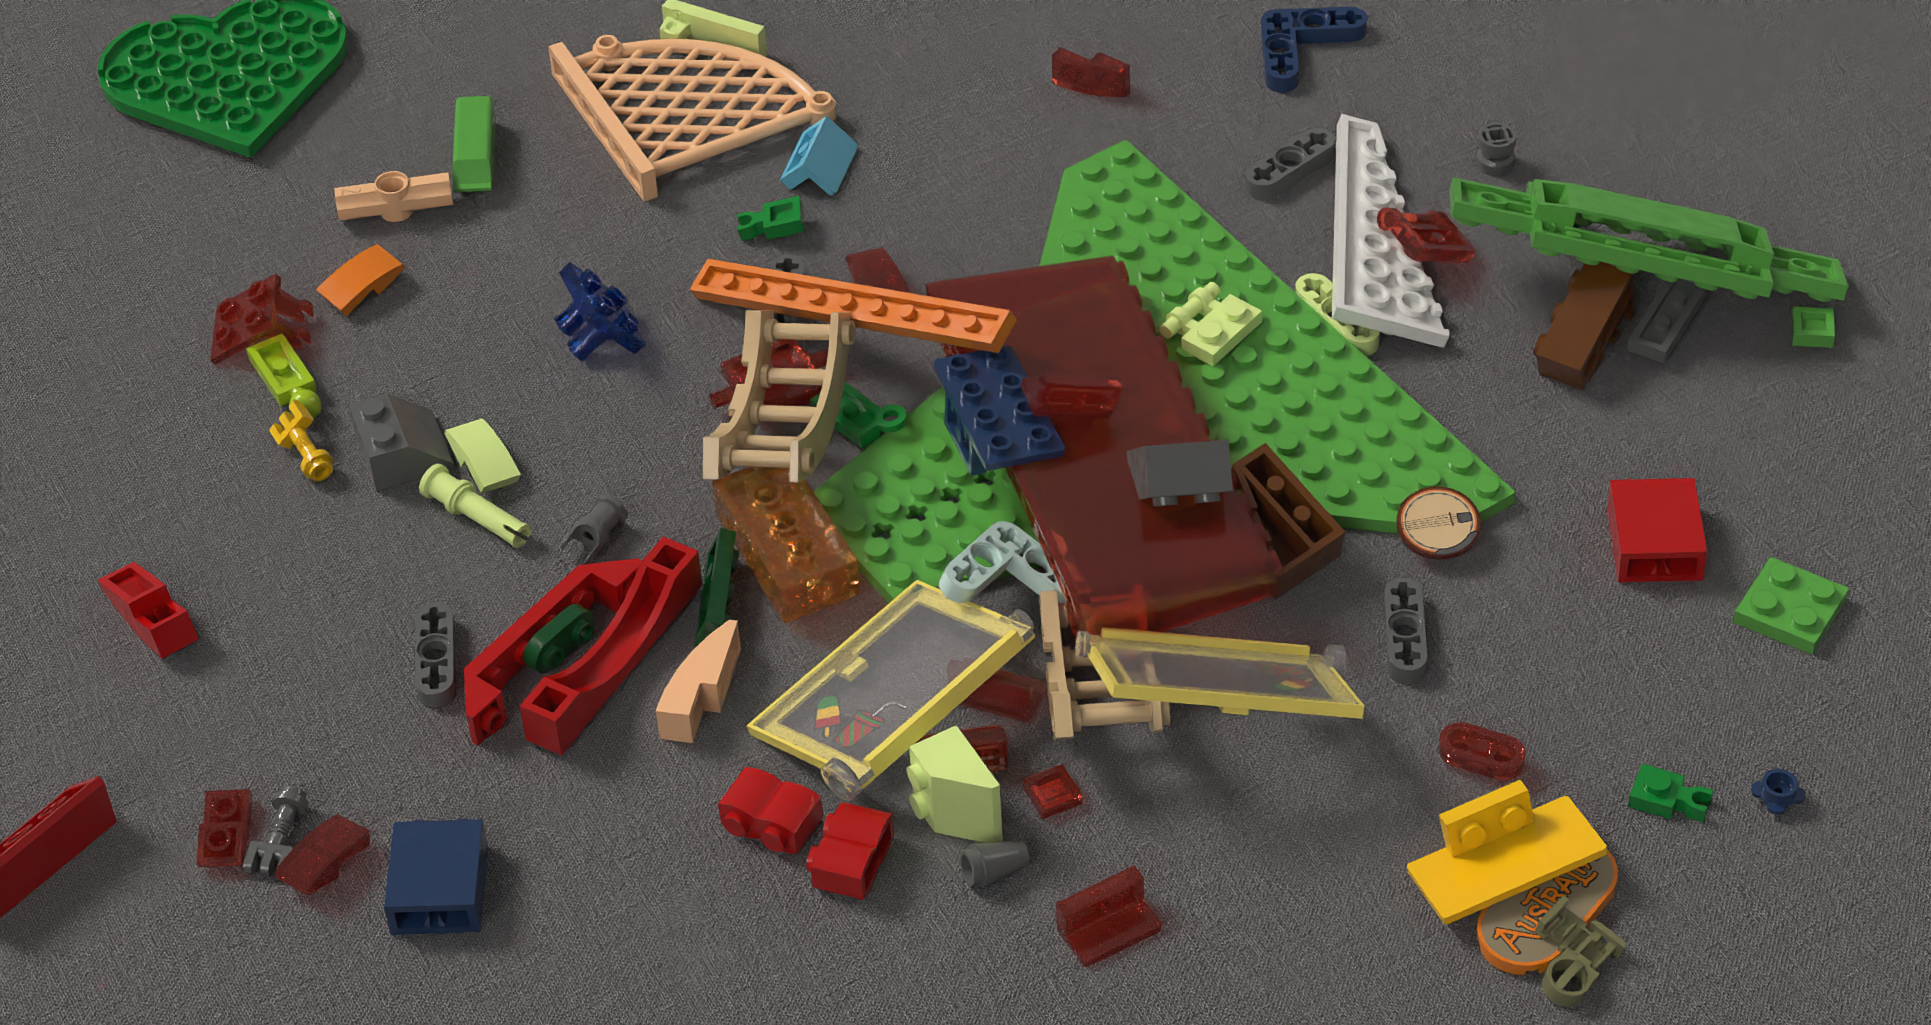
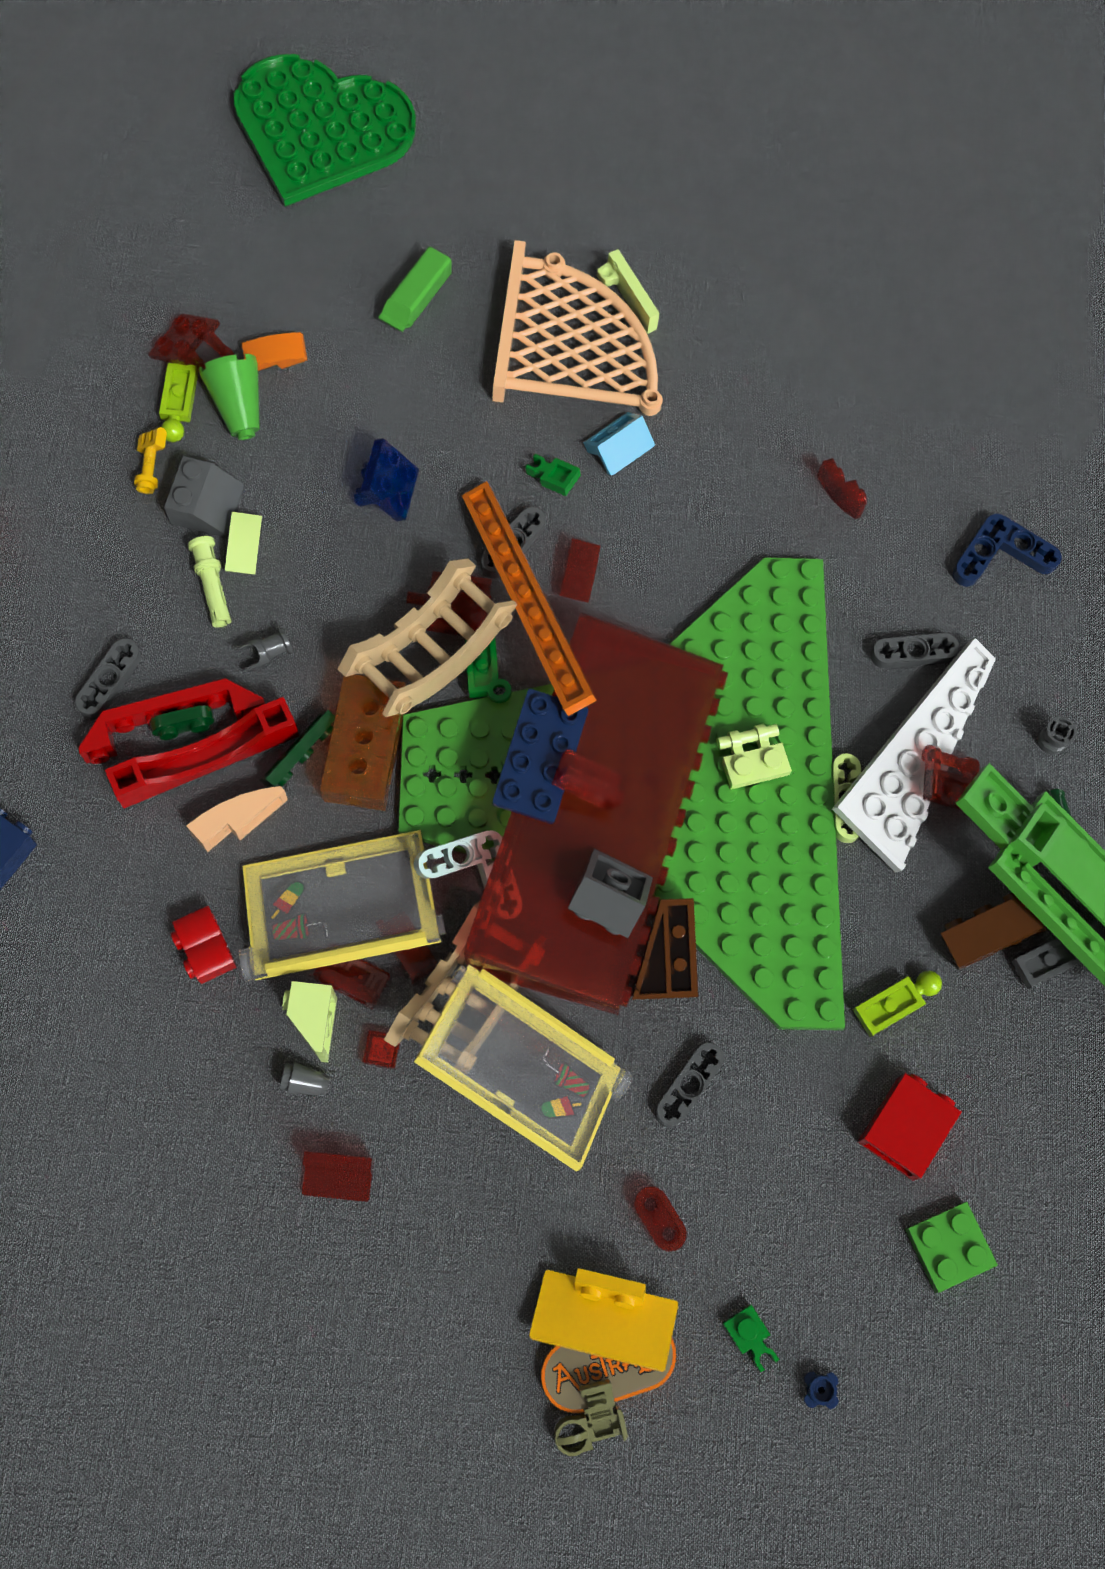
camera: 25 degrees right, 25 degrees up
(352, 326) = (235, 392): none -> bright green cone
(393, 196) = (328, 293): light nougat piece -> none
(851, 850) = (226, 1010): red brick -> none
(1438, 523) = (773, 1020): piece -> none
(1546, 442) = (897, 1002): none -> lime plate

